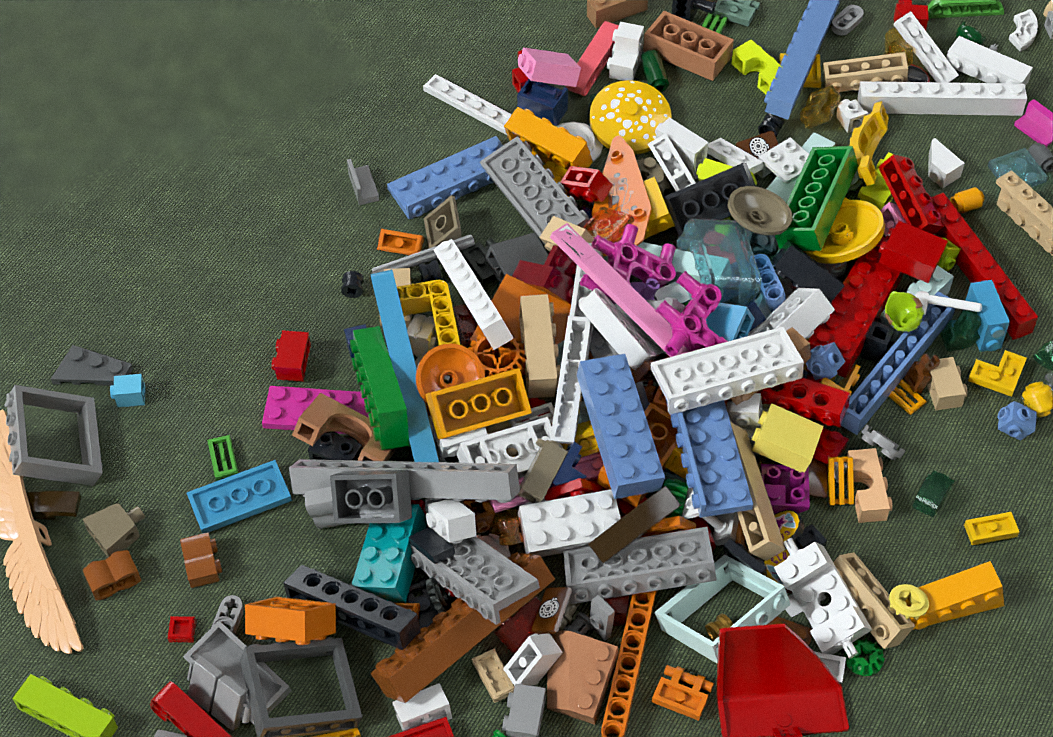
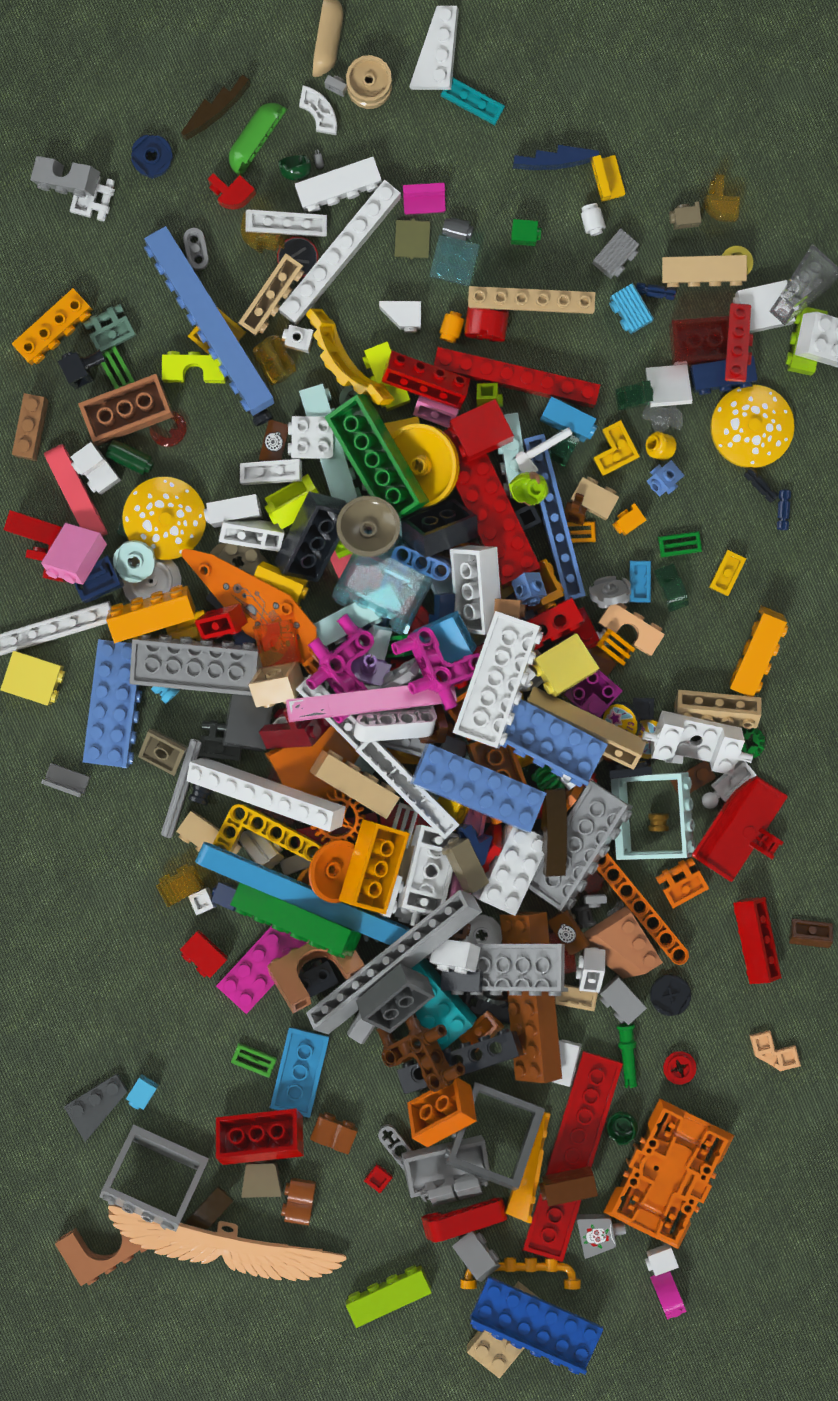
camera: 55 degrees left, 35 degrees up
(153, 492) = (259, 1136): none -> red brick
(335, 560) = (423, 1047): none -> reddish brown pin
(336, 328) = (201, 901): none -> white plate
(339, 305) = (180, 885): none -> clear yellow brick
(352, 284) = (166, 861): black wheel -> none
(400, 242) = (149, 792): orange slope -> none
(426, 114) = (33, 678): none -> light yellow brick
(495, 199) = (165, 693): none -> medium azure wheel
(509, 531) = (488, 914): clear orange wheel -> none
(540, 33) = (31, 528): none -> red slope
(583, 122) = (142, 552): none -> light aqua plate
(700, 91) = (177, 435): none -> clear red head
(913, 466) = (640, 581): none -> dark azure plate
(916, 596) = (746, 680): light yellow gear -> none
(954, 421) = (629, 520): none -> light orange brick
(973, 479) = (680, 544): none -> green tile
(996, 214) = (486, 324): none -> red brick
(1002, 139) = (412, 239): none -> olive piece

